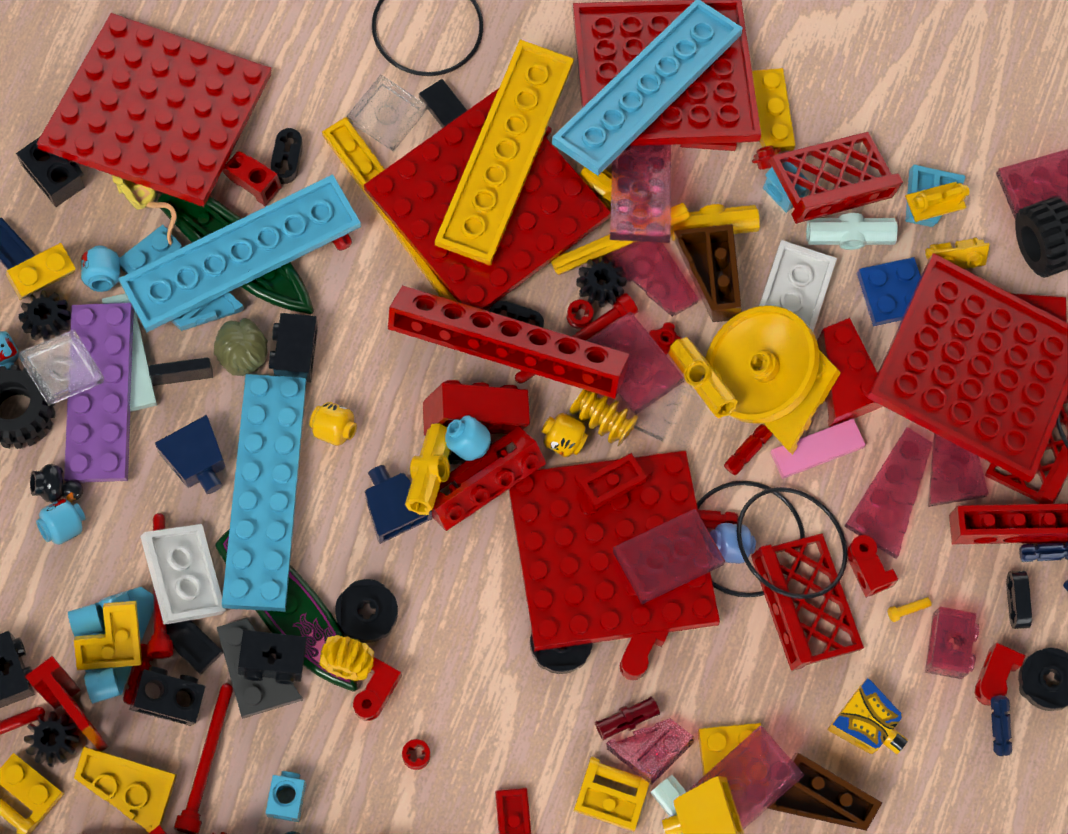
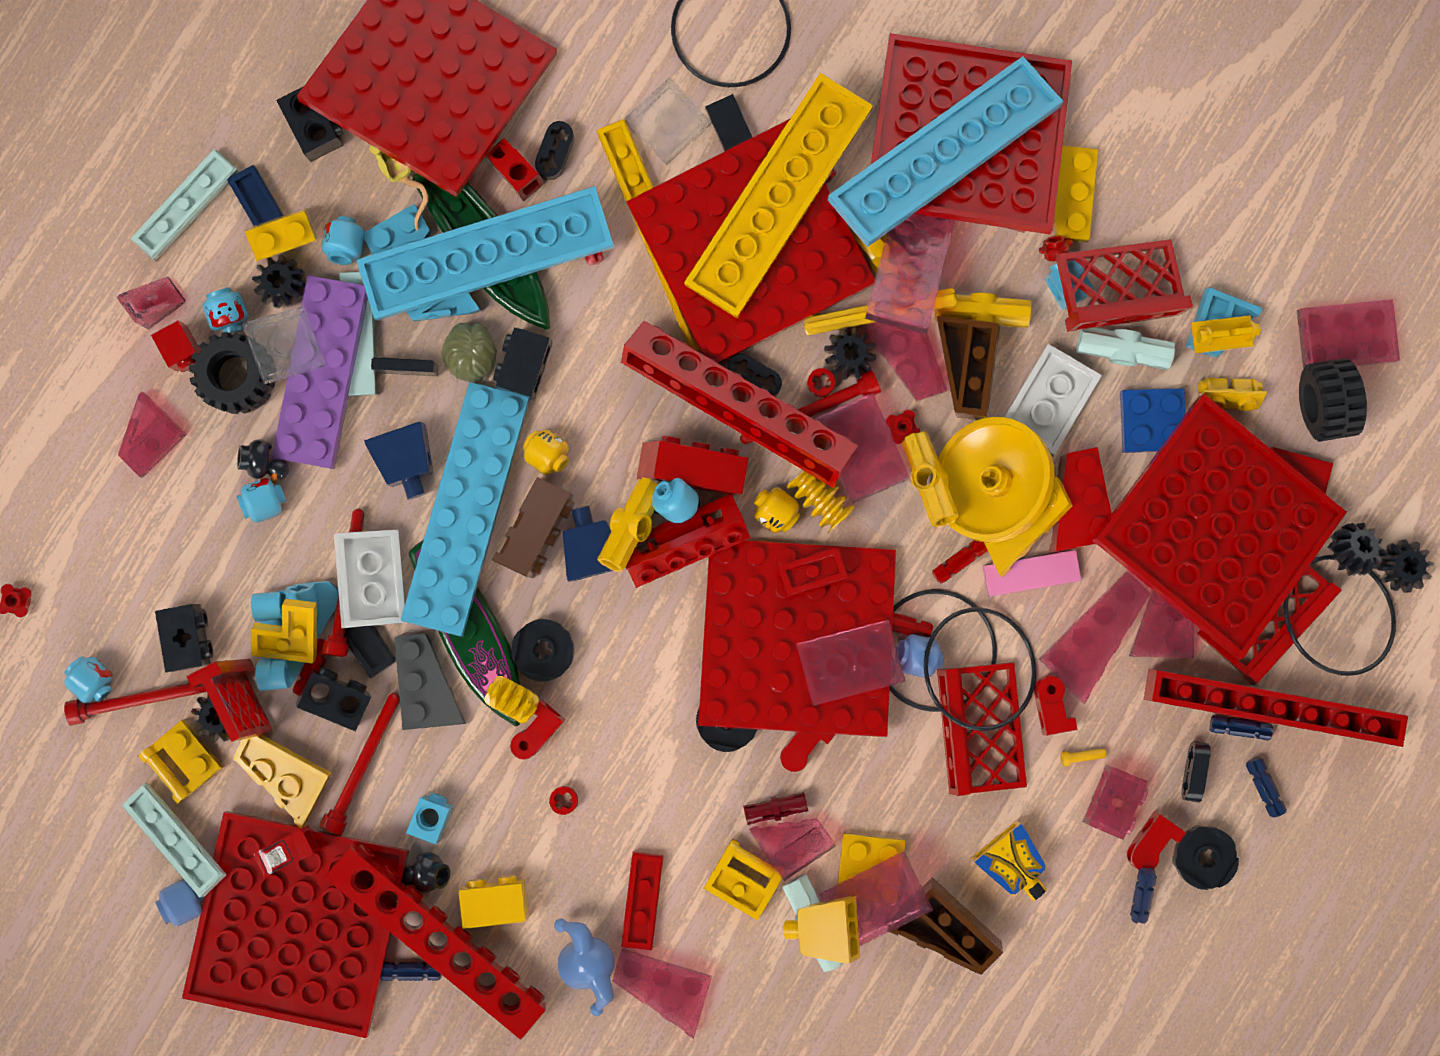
camera: 25 degrees right, 15 degrees up
(255, 654) = (425, 669): black brick -> none
(336, 496) = (535, 529): none -> reddish brown wedge

